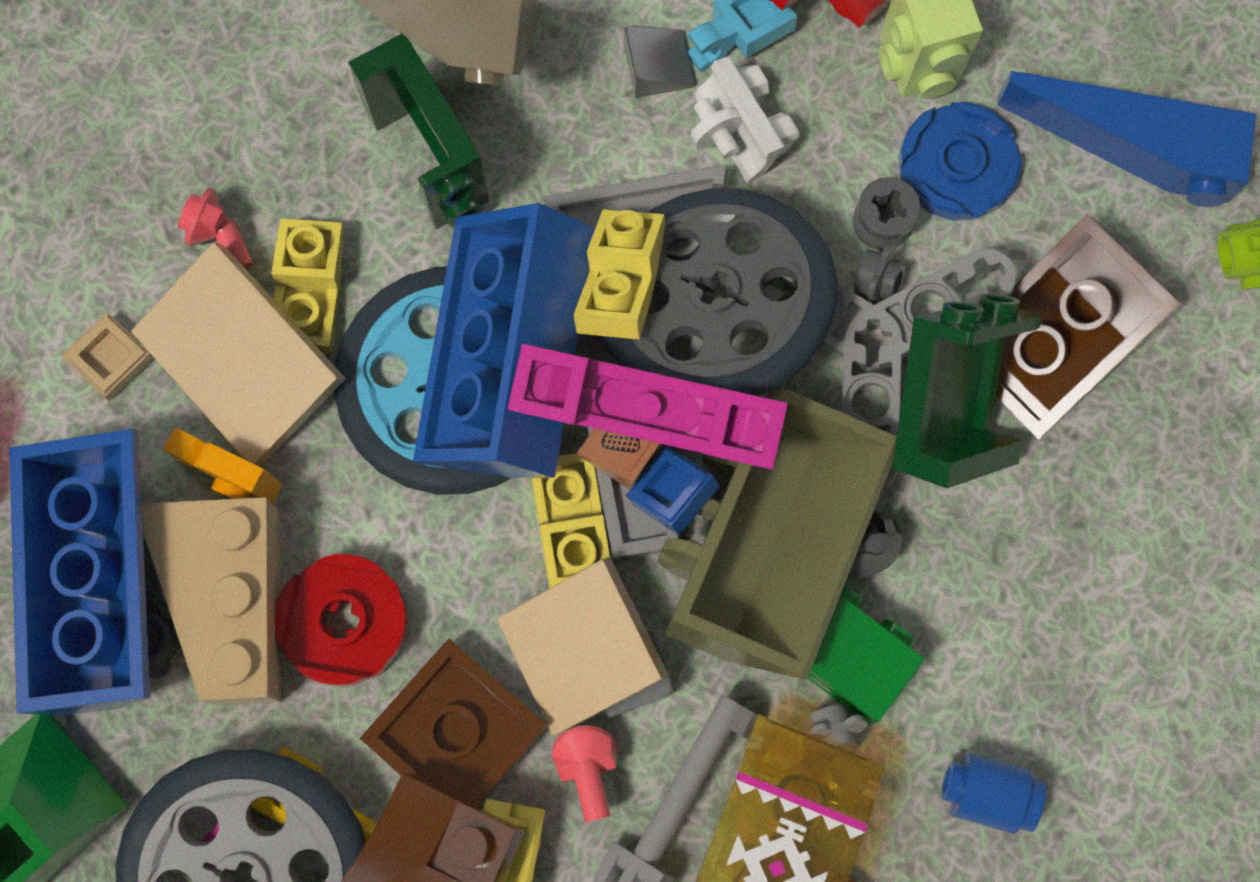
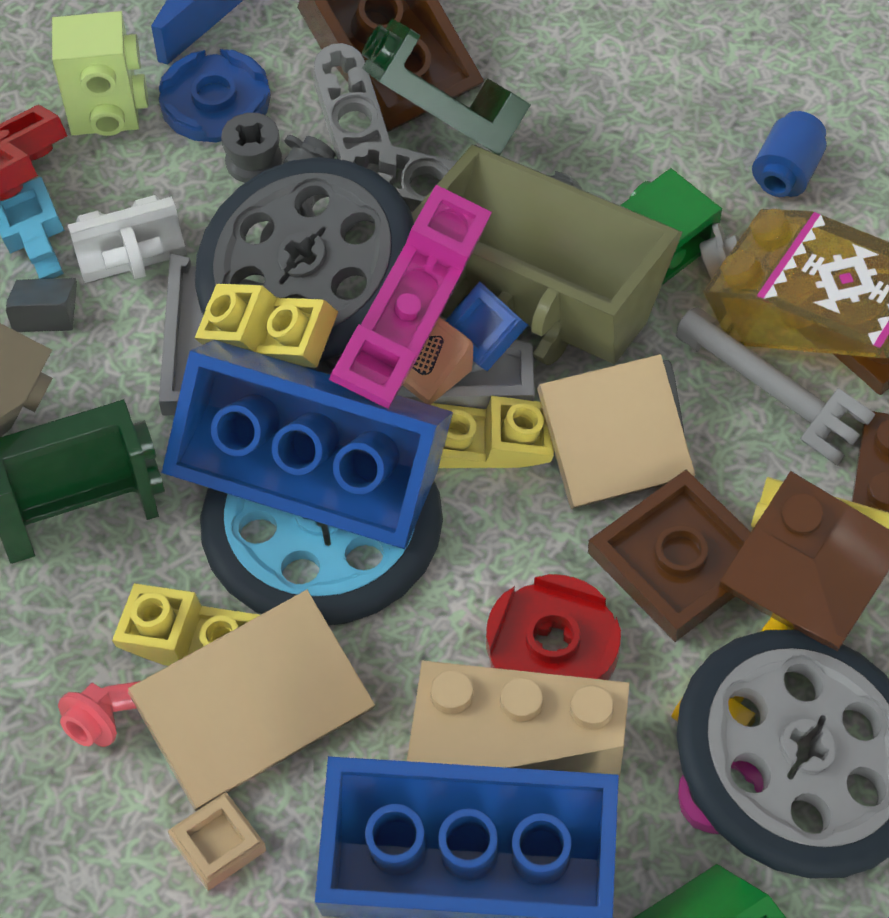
camera: 75 degrees left, 20 degrees down
(232, 475) = (380, 715): light orange plate -> none
(583, 756) = (718, 445): coral plate -> none

